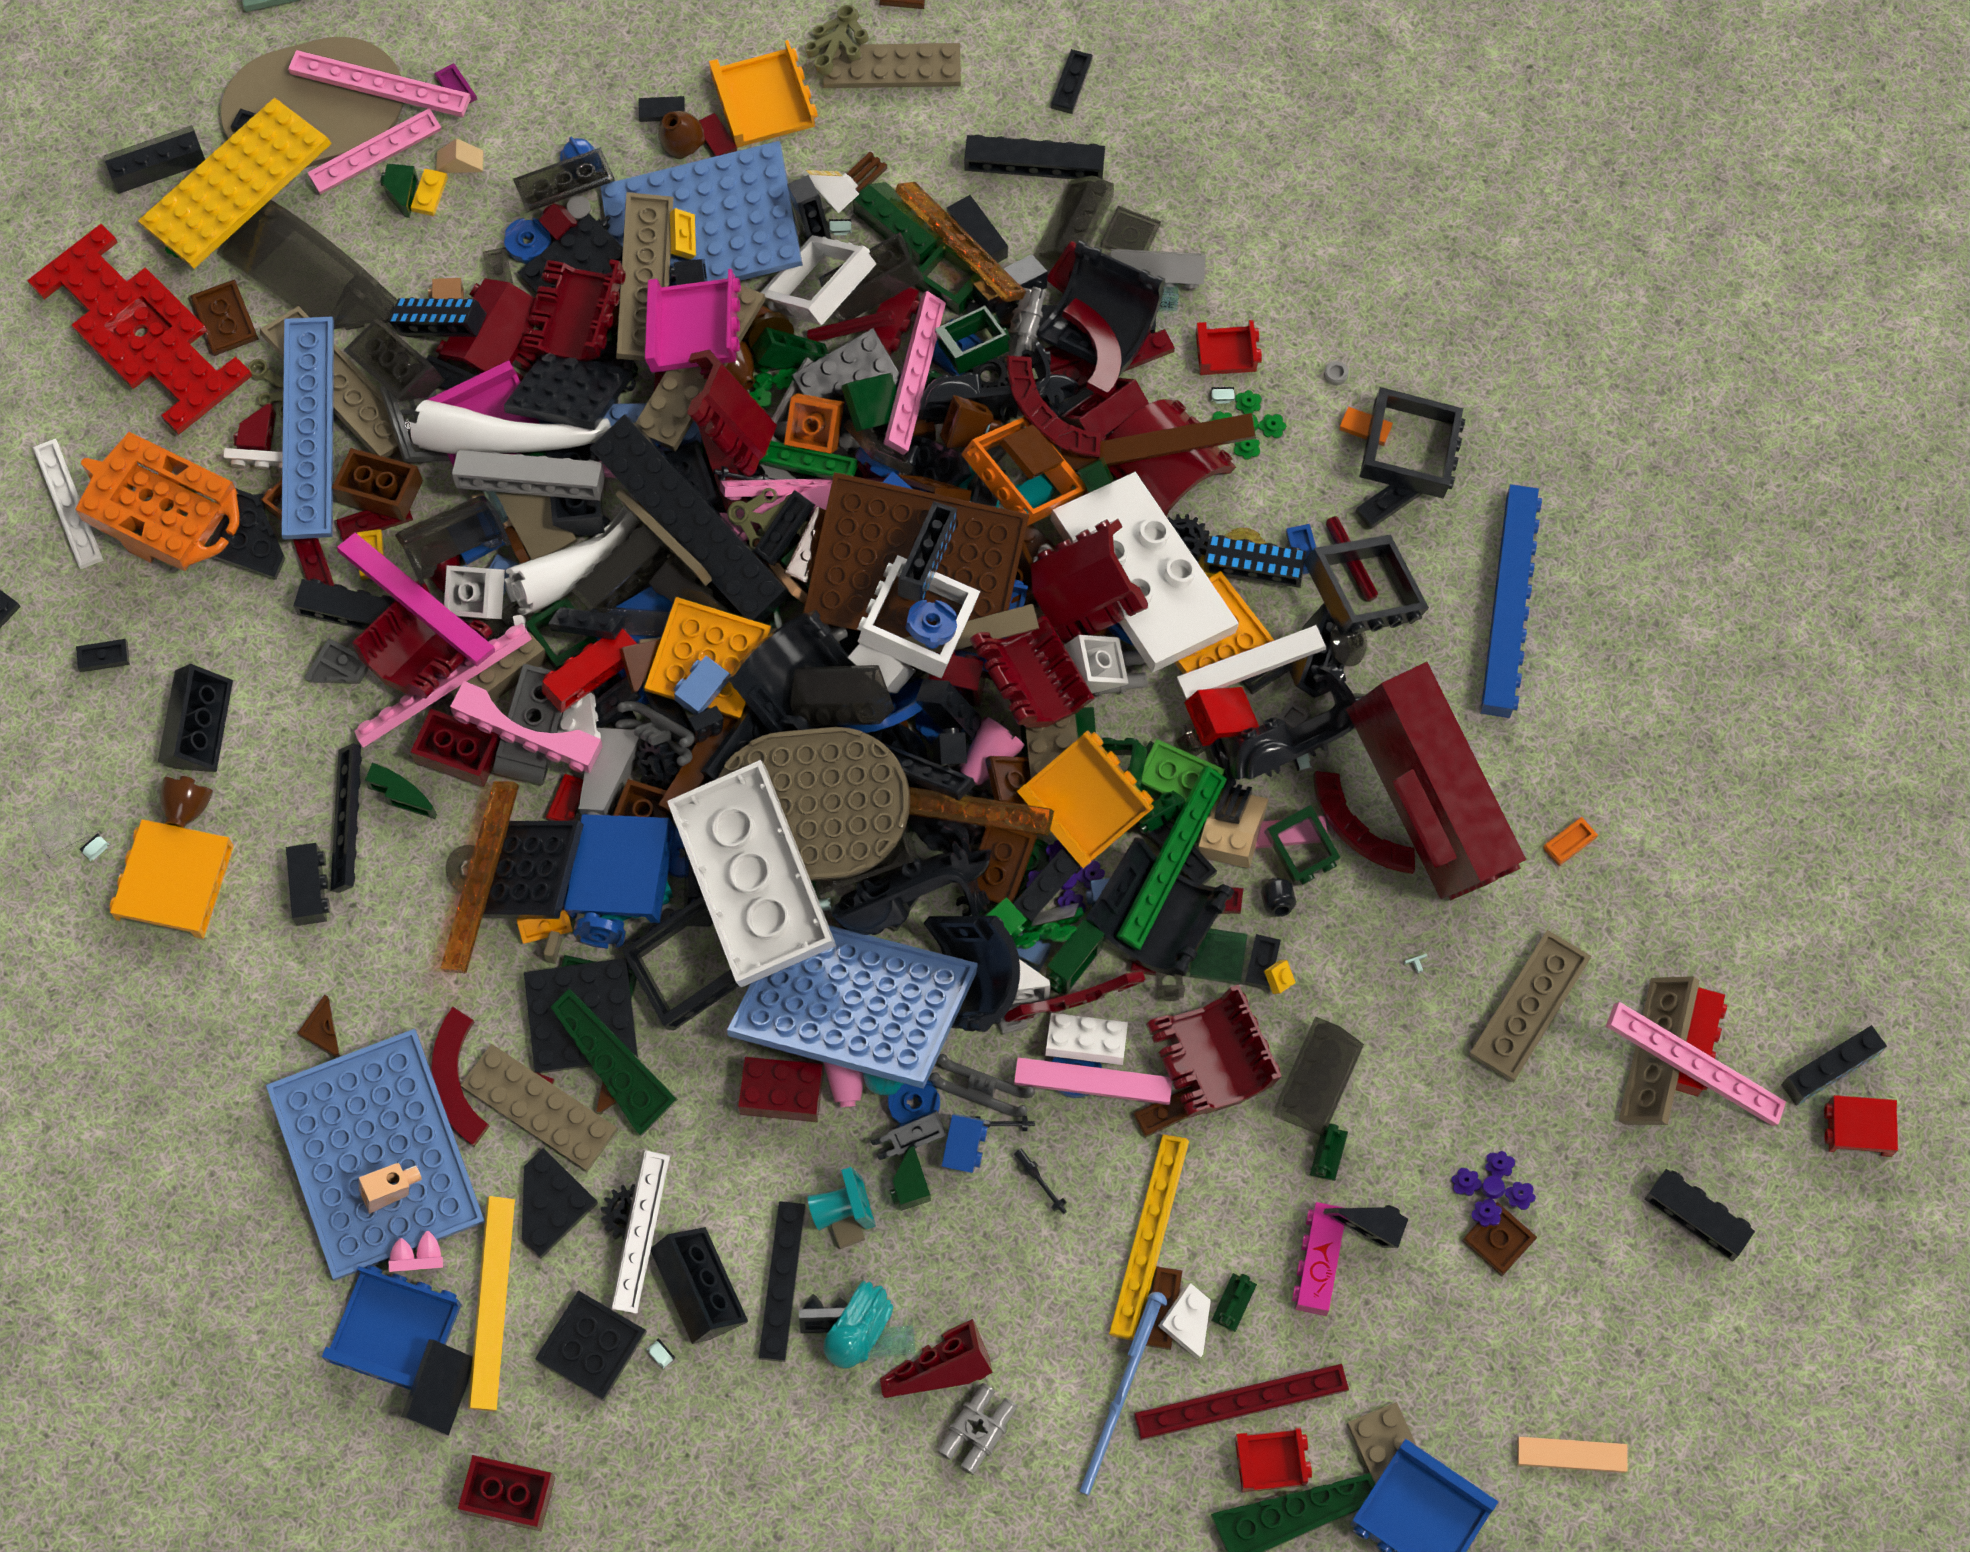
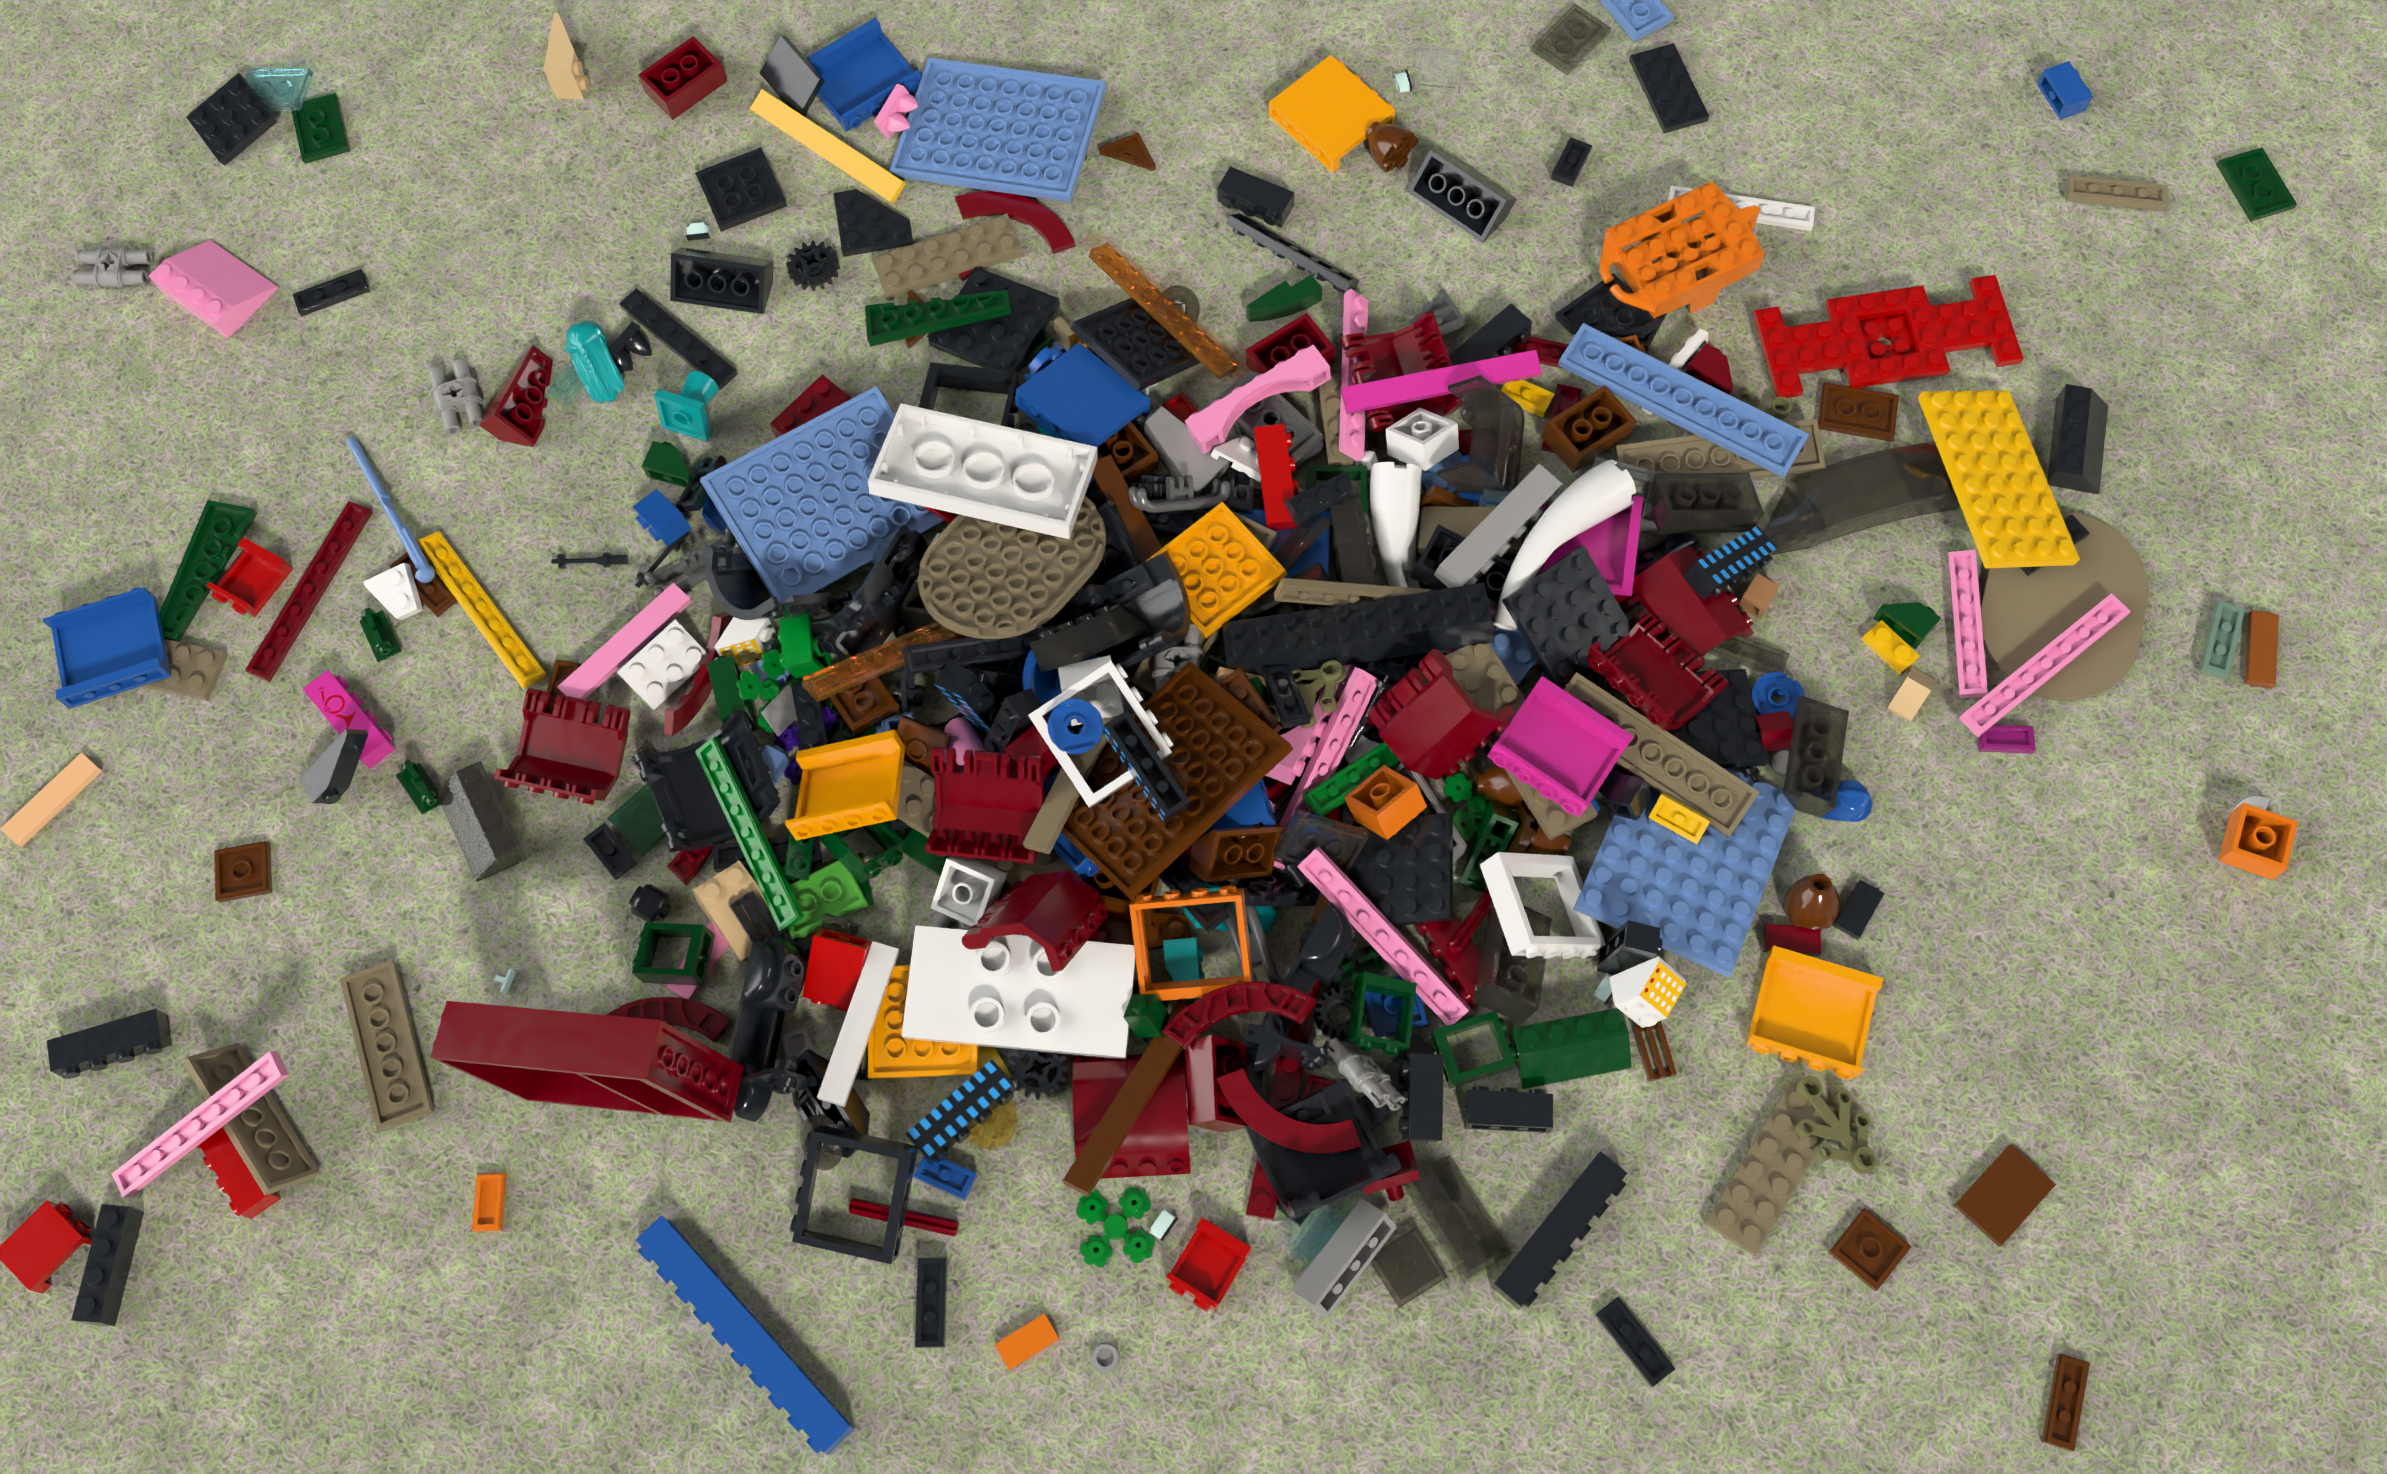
camera: 130 degrees right, 0 degrees up
(379, 1193) = (958, 108): light nougat torso -> none
(638, 662) = (1252, 513): reddish brown tile -> none
(639, 1231) = (788, 257): tile -> none
(701, 686) = (1184, 540): medium blue brick -> none
(706, 724) = (1153, 530): black piece -> none
(870, 400) = (1369, 861): dark green tile -> none
(960, 241) = (1500, 1074): clear orange plate -> none
(966, 422) = (1281, 934): reddish brown torso -> none
(1031, 451) = (1203, 959): reddish brown tile -> none
(1279, 976) = (583, 852): yellow plate -> none
(1405, 477) = (1002, 1330): black window -> none
(1493, 1188) = (280, 895): dark purple plant -> none

